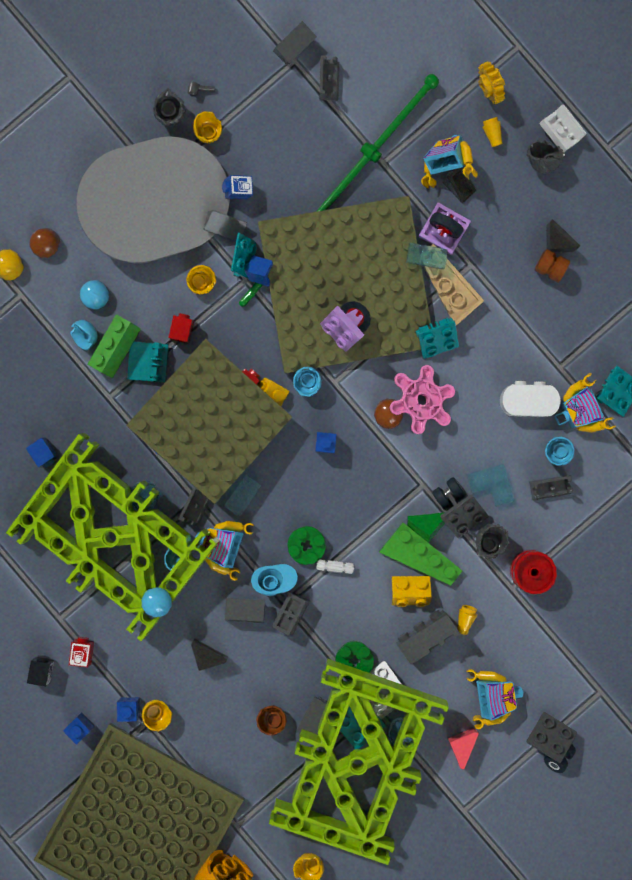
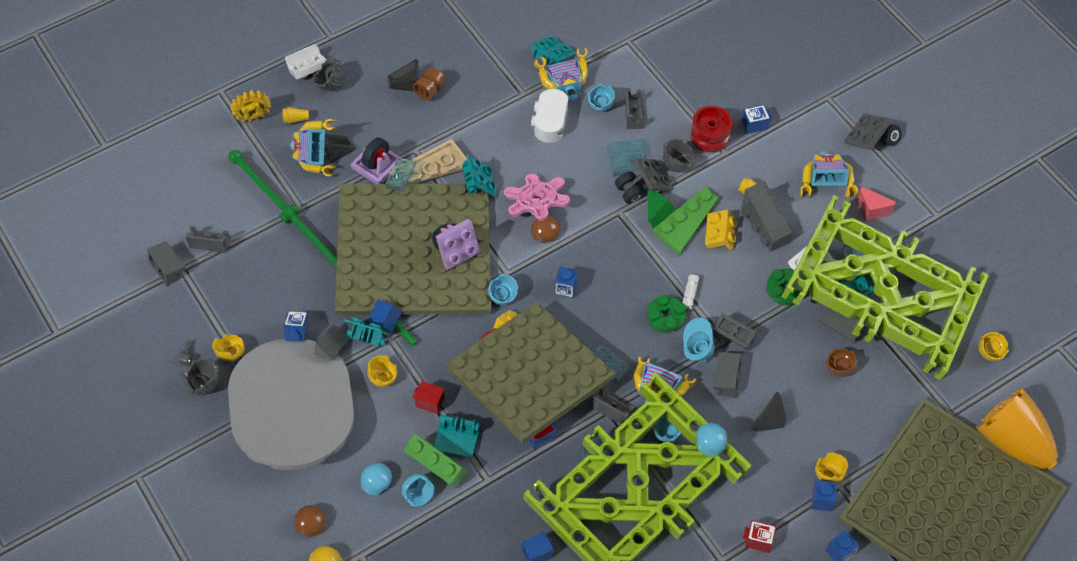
camera: 80 degrees left, 30 degrees down
(556, 618) = (756, 119): none -> blue brick

